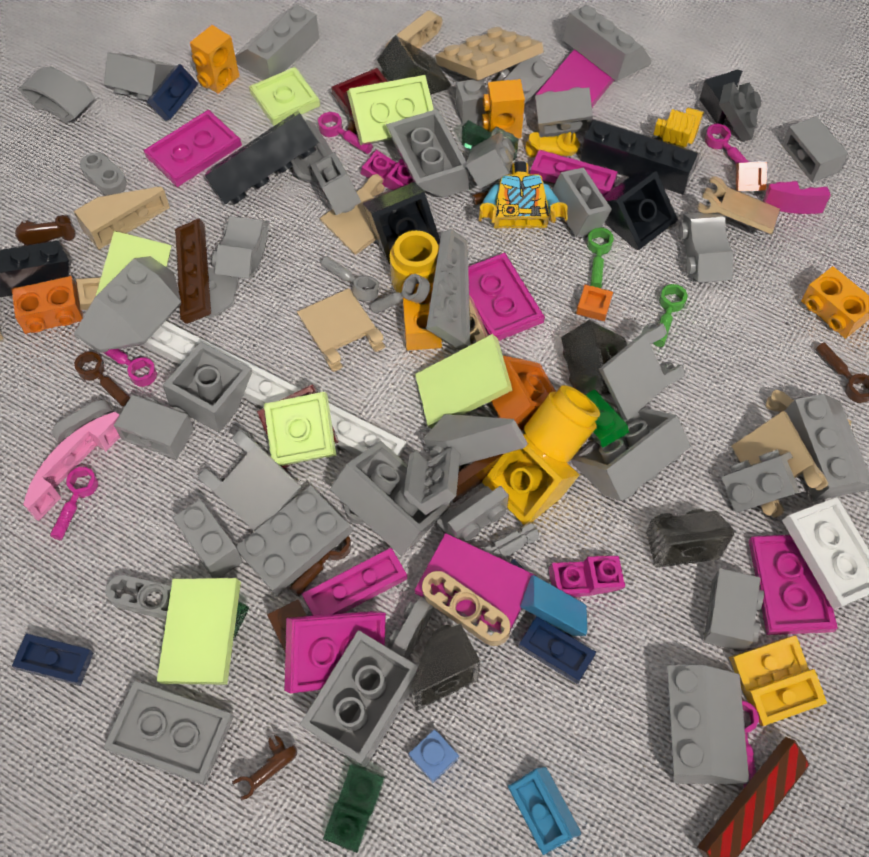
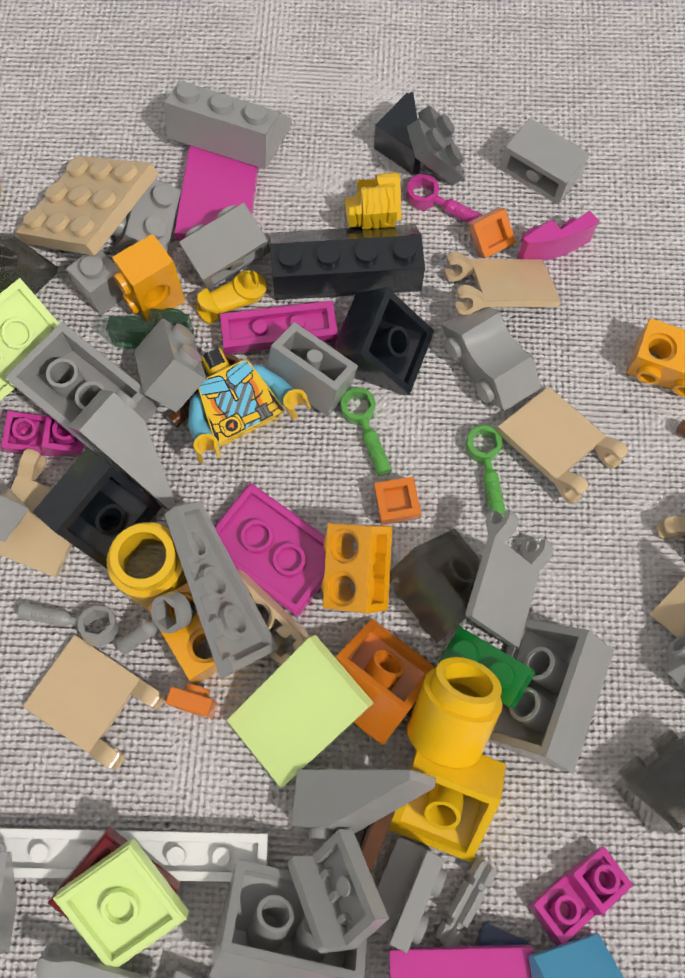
camera: 30 degrees left, 10 degrees up
(400, 352) = (192, 700): none -> orange plate
(439, 180) = (125, 442): none -> light grey slope
(546, 320) = (366, 568): none -> light orange brick
(725, 312) = (558, 438): none -> tan flag

